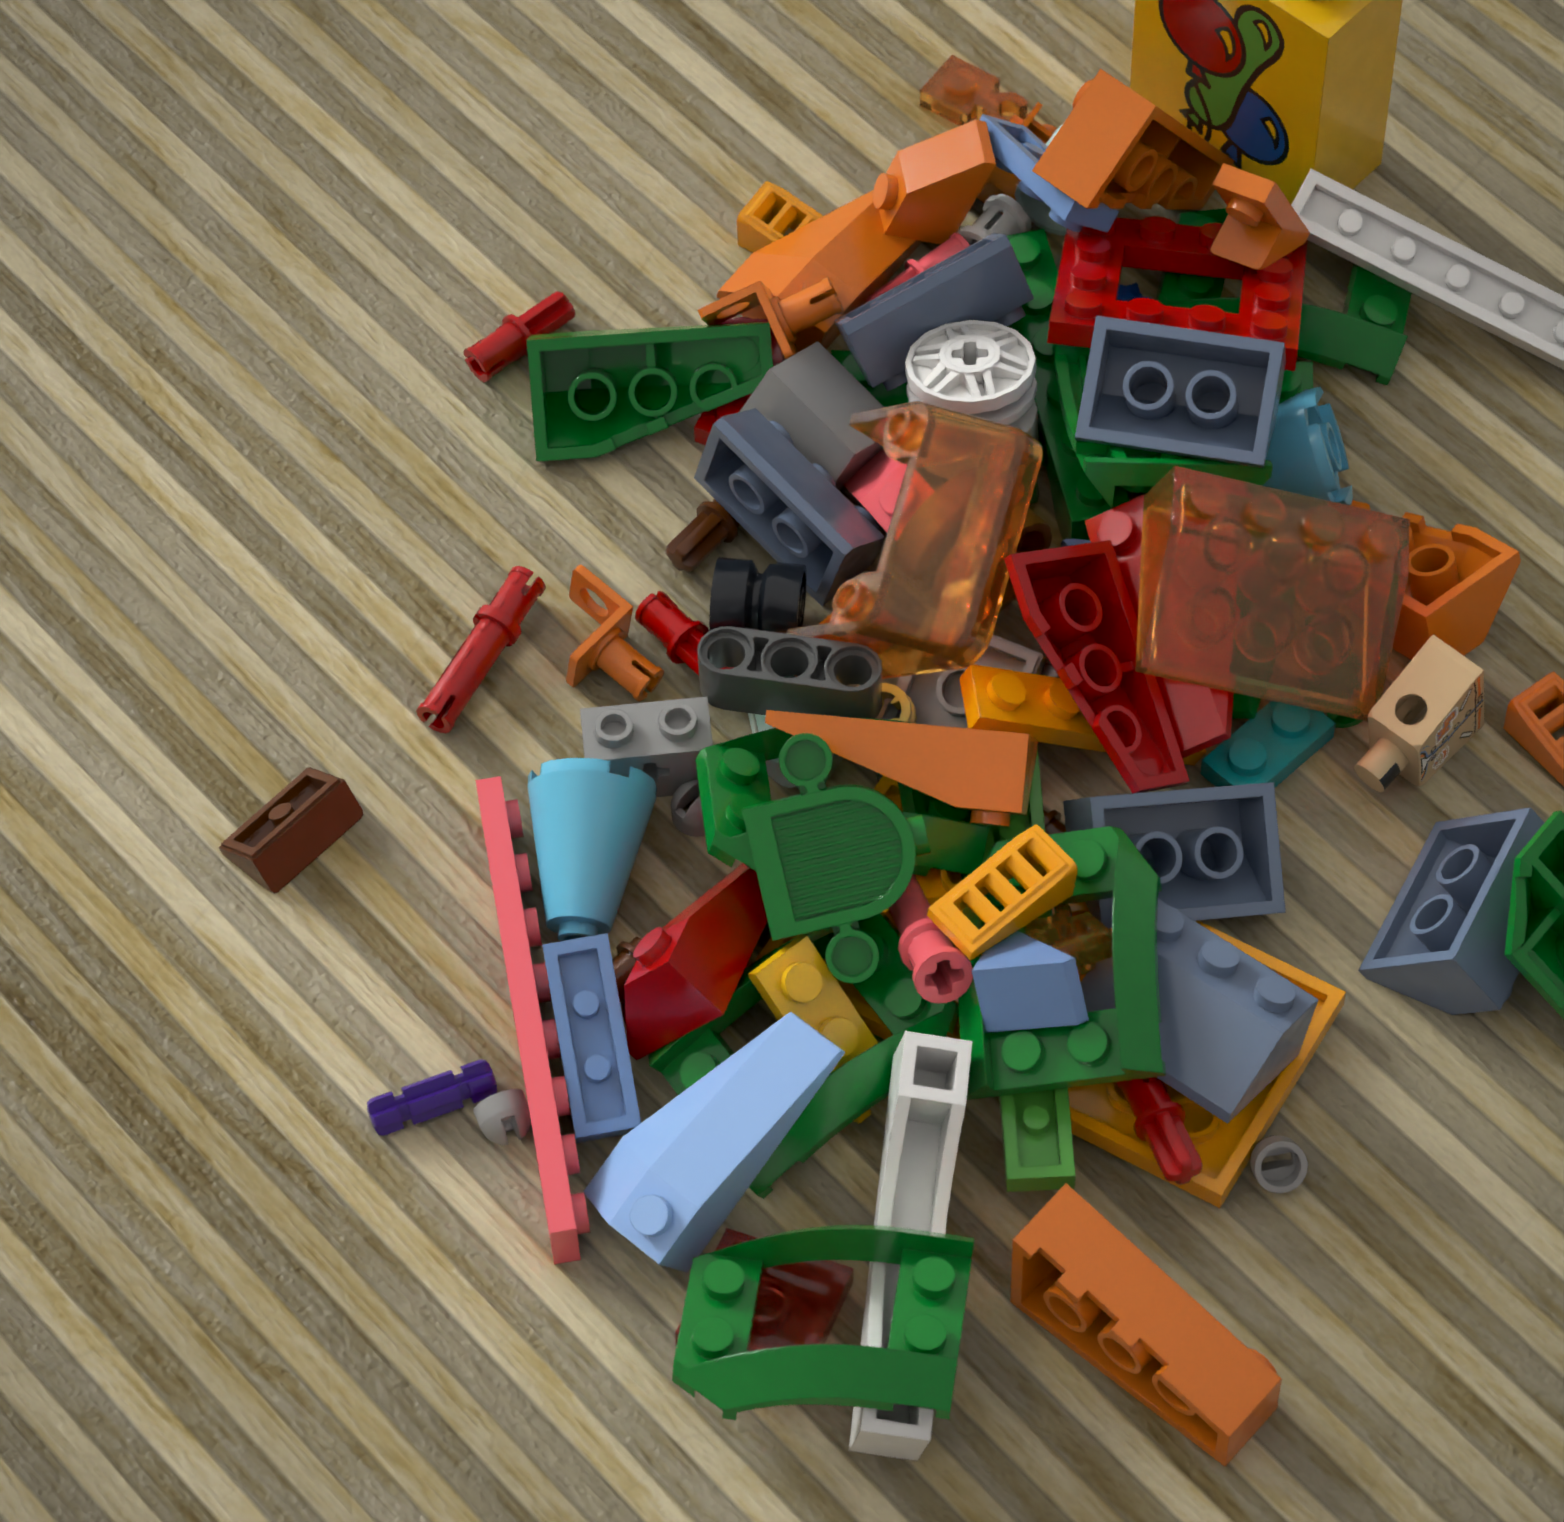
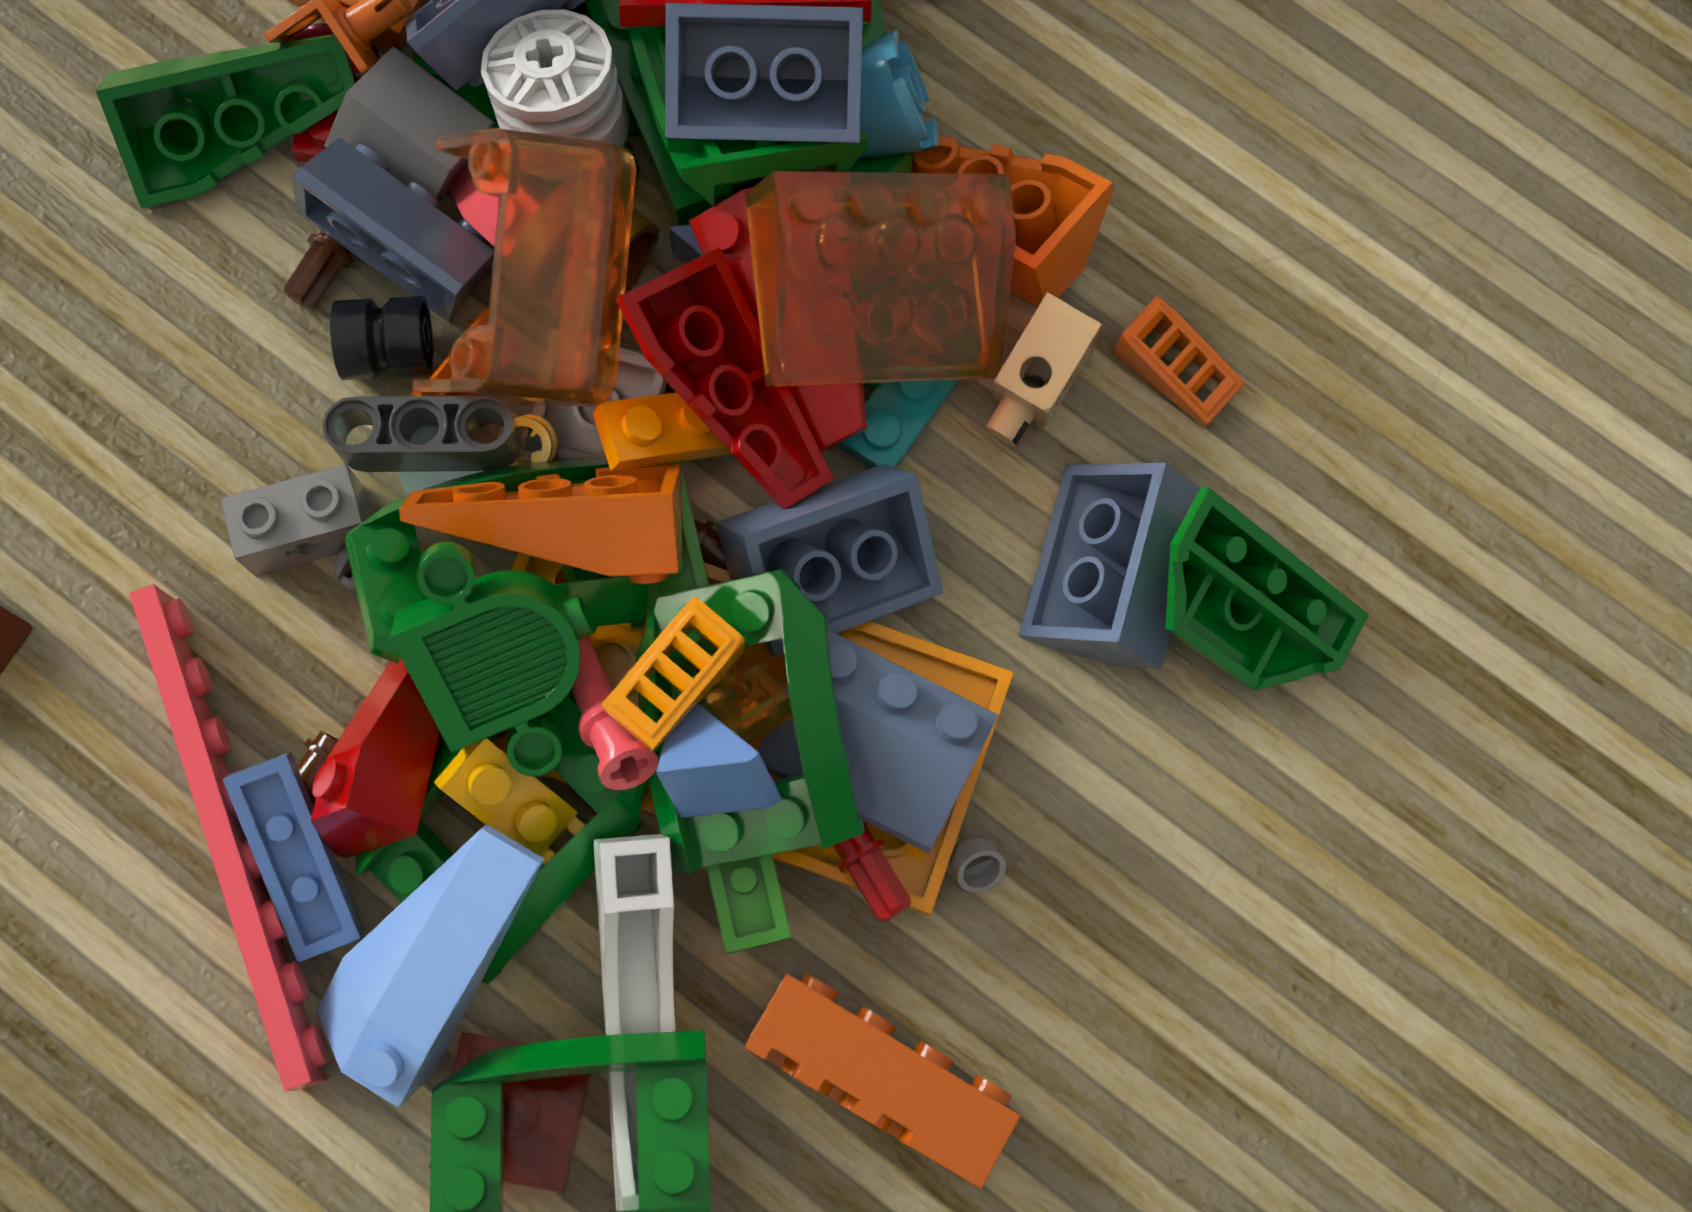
camera: 20 degrees left, 20 degrees up
(431, 1097) = (148, 937): dark purple axle -> none
(494, 628) = (118, 428): red pin -> none
(502, 1114) = (216, 948): light grey hinge -> none
(510, 340) = (77, 92): red axle -> none
(586, 840) = (254, 643): medium azure cone -> none
(606, 645) = (241, 409): orange bracket -> none
(672, 628) = (310, 380): red axle -> none

